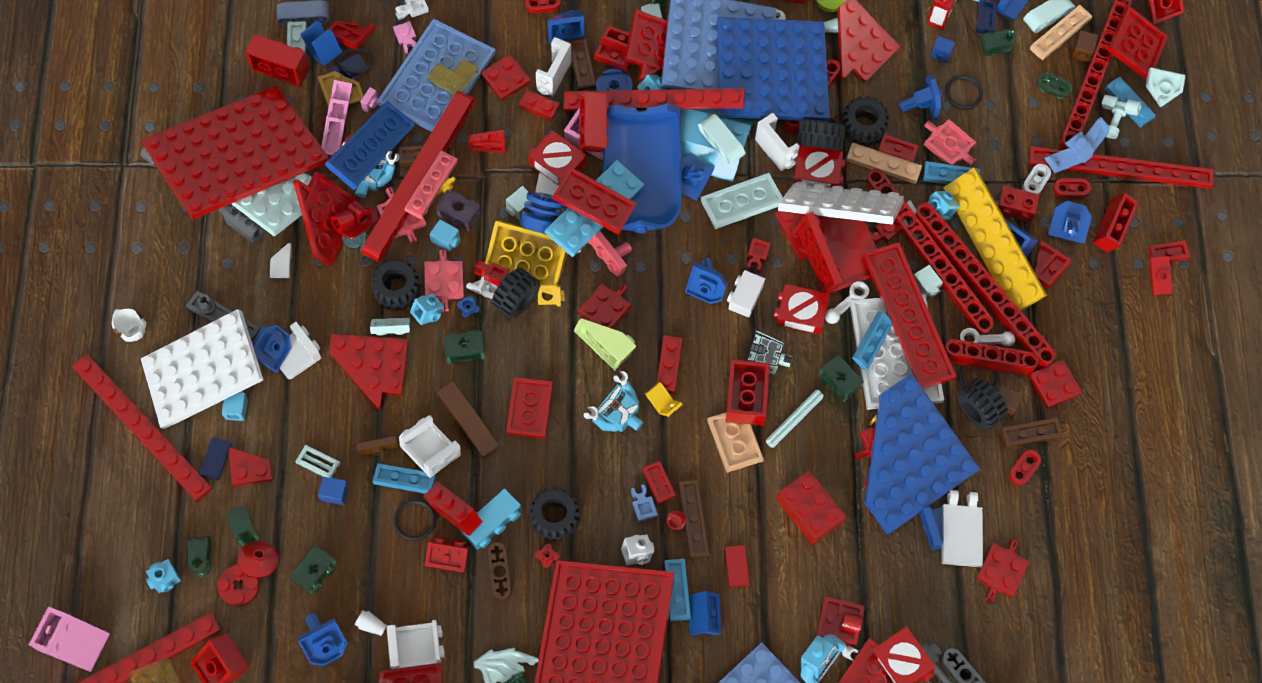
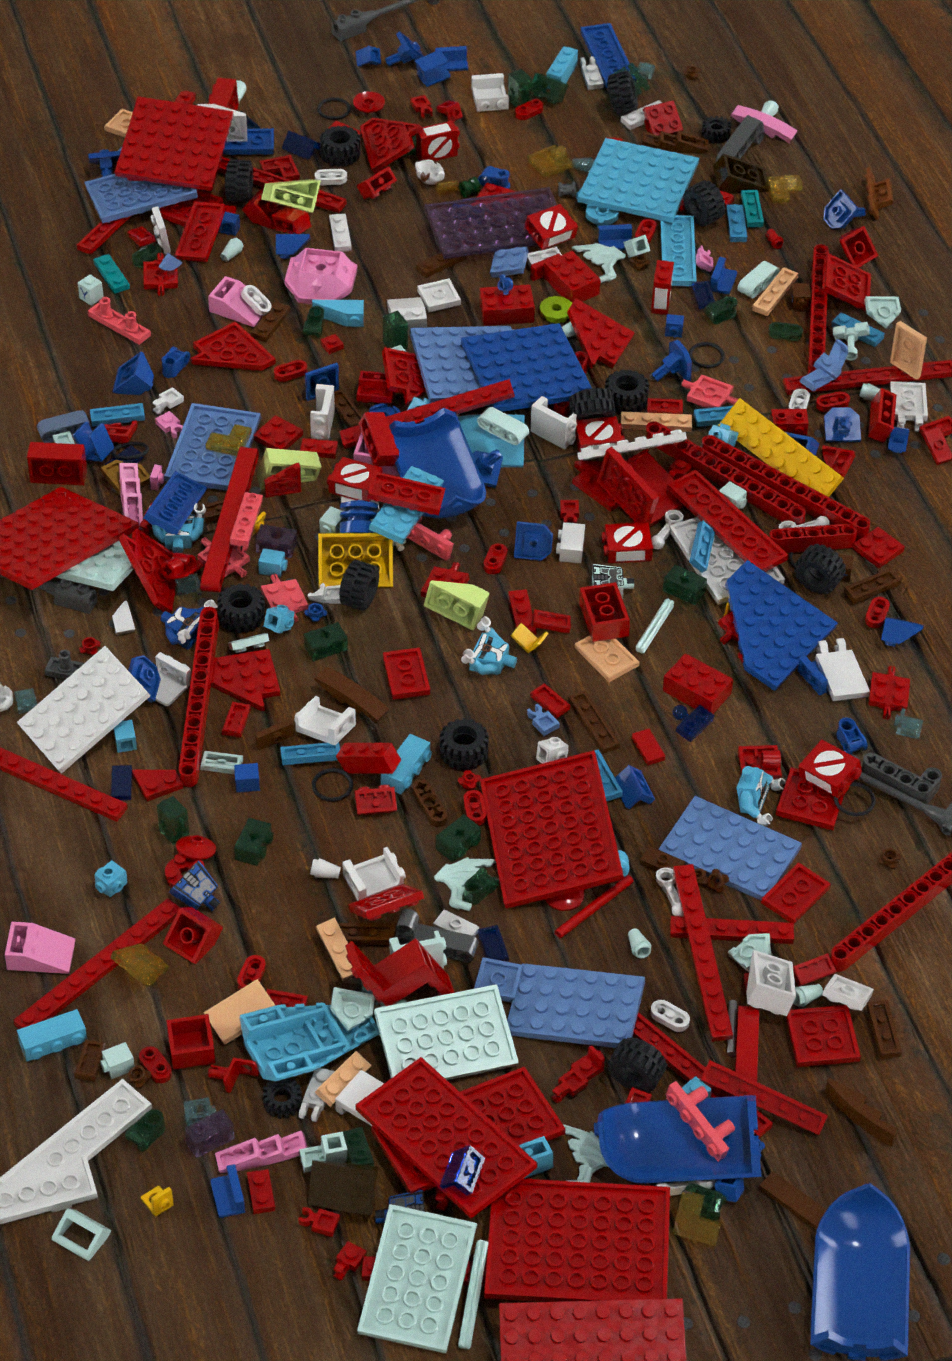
camera: 15 degrees left, 20 degrees down
(158, 334) = (25, 700): none -> clear light blue bracket
(199, 551) = (138, 857): clear green piece -> none
(237, 282) = (90, 646): none -> red plate
(238, 613) = (196, 888): none -> torso
(319, 391) = (199, 697): none -> red beam
(323, 642) = (287, 889): blue piece -> none
(337, 289) = (183, 625): none -> torso
(348, 416) = (236, 719): none -> red plate
(358, 12) = (117, 414): none -> dark azure plate
(490, 118) = (279, 459): none -> yellowish green wedge
(493, 273) = (328, 578): red plate -> none
(517, 617) = (458, 838): none -> clear green brick
(540, 592) = (475, 809): none -> red plate
(558, 295) = (397, 581): yellow bracket -> none
(665, 288) = (495, 558): none -> red plate
(676, 520) = (578, 724): red plate -> none
(693, 385) = (551, 621): none -> red plate
(742, 200) = (539, 475): light aqua plate -> none
(792, 550) = (692, 724): none -> clear blue plate
(942, 622) = (850, 736): none -> blue piece
(1007, 618) = (908, 726): none -> clear light blue bracket
(1041, 498) = (898, 631): none -> blue slope
(1114, 187) = (868, 391): none -> light aqua cone
(1122, 257) = (898, 440): none -> blue bracket
(1151, 212) = (910, 403): none -> white tile
(1168, 156) = (908, 350): none -> light nougat tile

